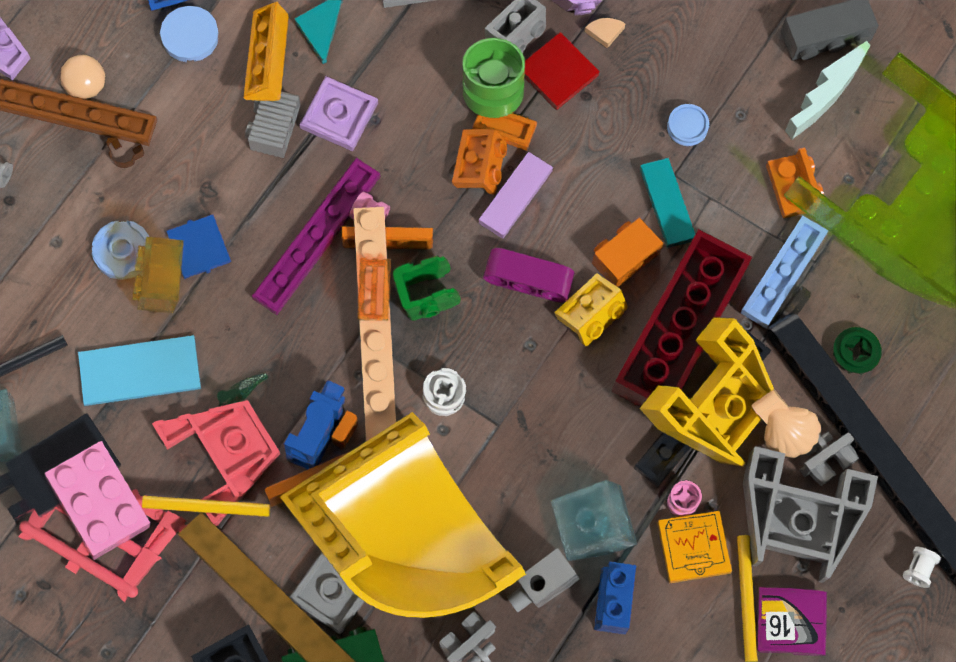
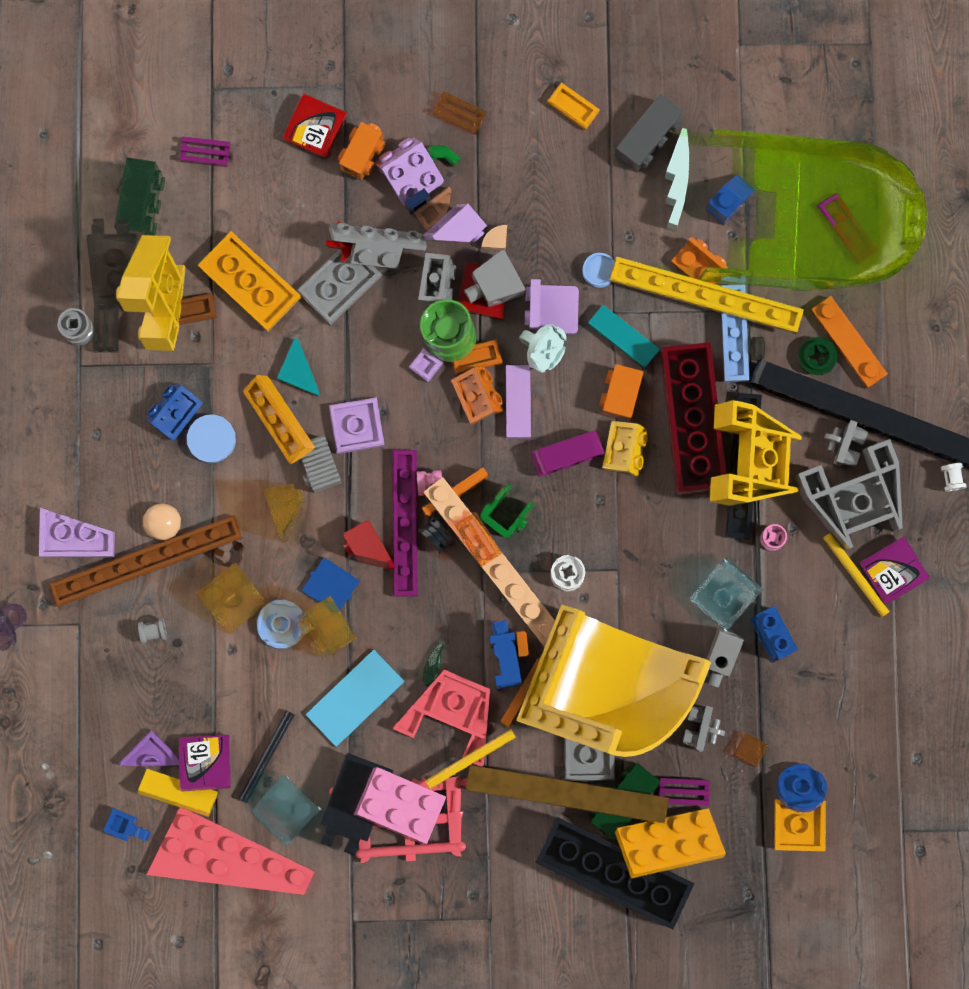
camera: 30 degrees left, 10 degrees up
(92, 189) = (232, 598): none -> clear yellow slope
(206, 139) = (285, 508): none -> clear yellow slope
(261, 228) = (367, 546): none -> red slope
(338, 264) = (436, 535): none -> black wheel
(449, 102) = (425, 365): none -> lavender tile
(574, 64) = (496, 281): none -> light grey torso
(579, 157) = (544, 347): none -> light aqua tile
(612, 127) = (552, 306): none -> lavender bracket
(694, 547) = (800, 564): light orange tile -> none
(782, 215) = (706, 295): none -> yellow tile
(787, 428) = (810, 446): light nougat animal -> none
(868, 141) = (729, 199): none -> blue slope
(900, 359) = (849, 342): none -> orange plate

